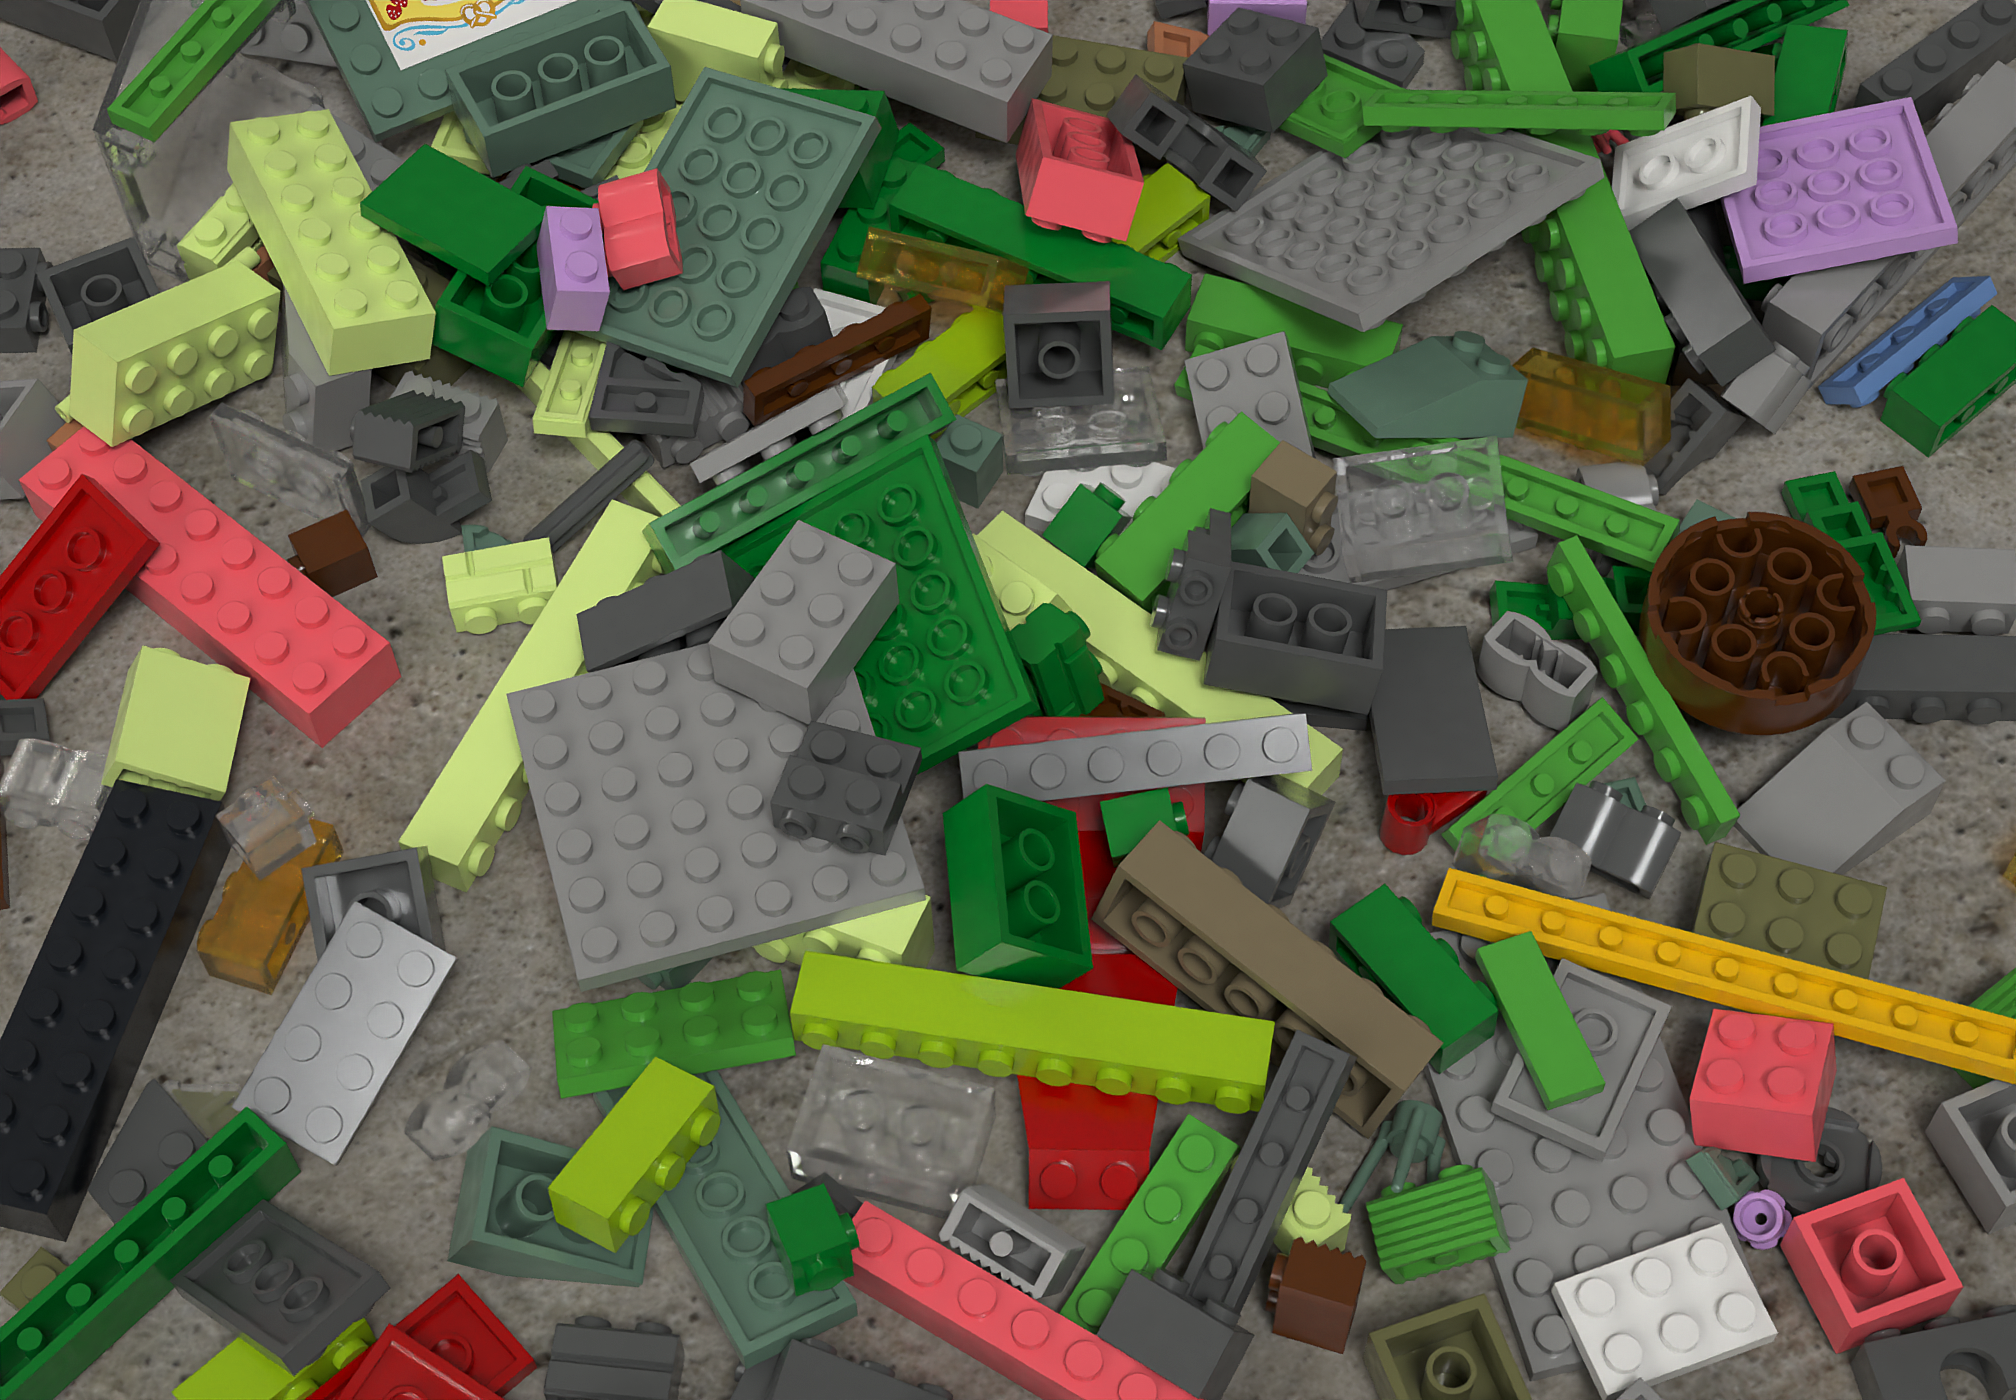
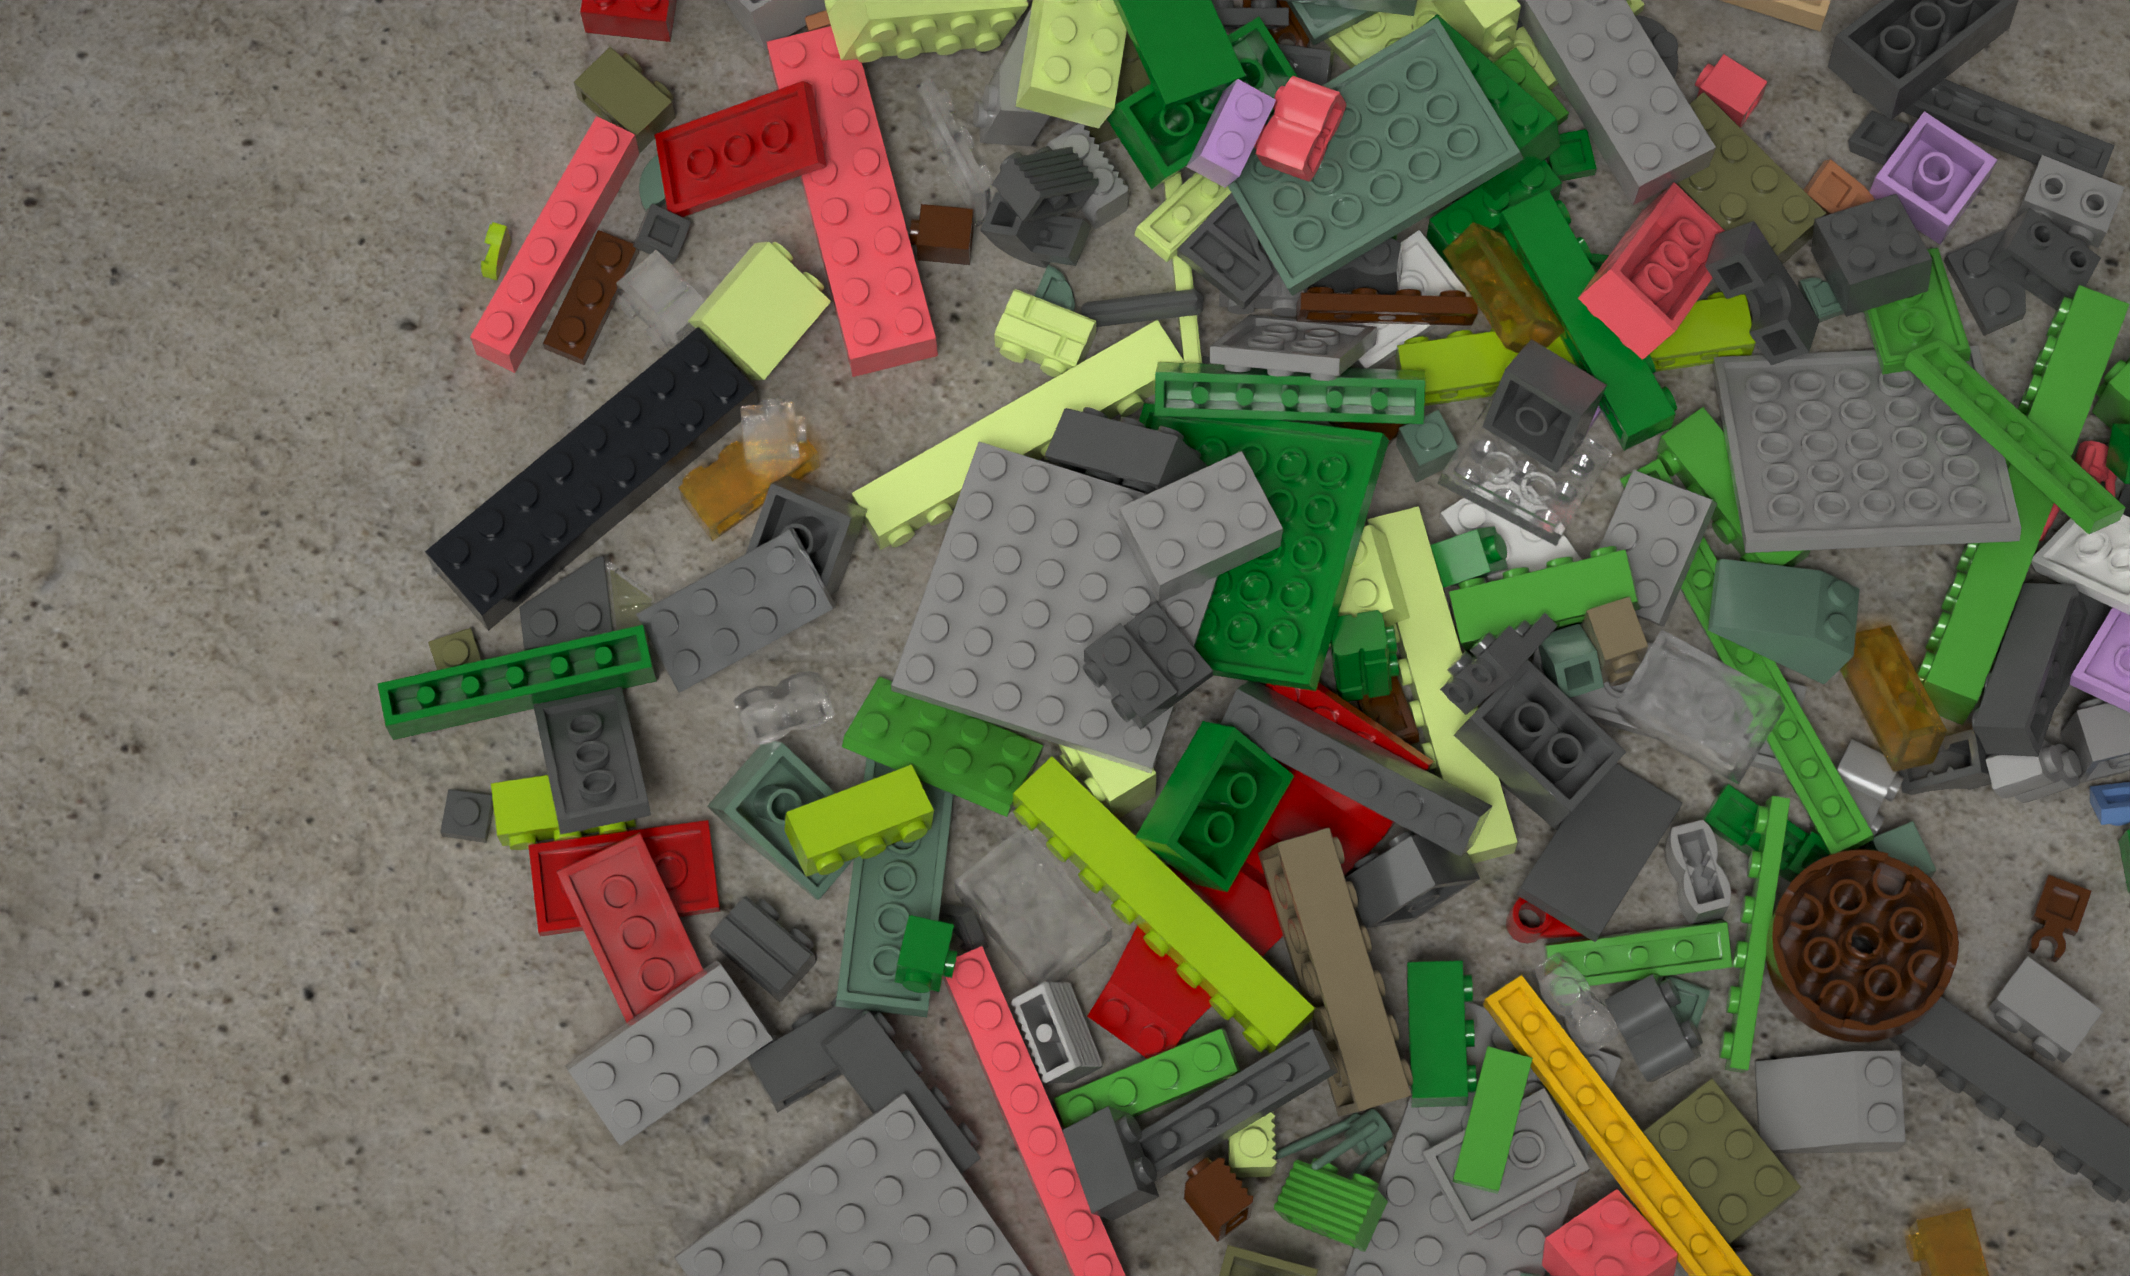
camera: 35 degrees right, 15 degrees up
(1133, 816) = (1333, 810): green brick -> none
(1823, 504) = (1992, 932): green slope -> none

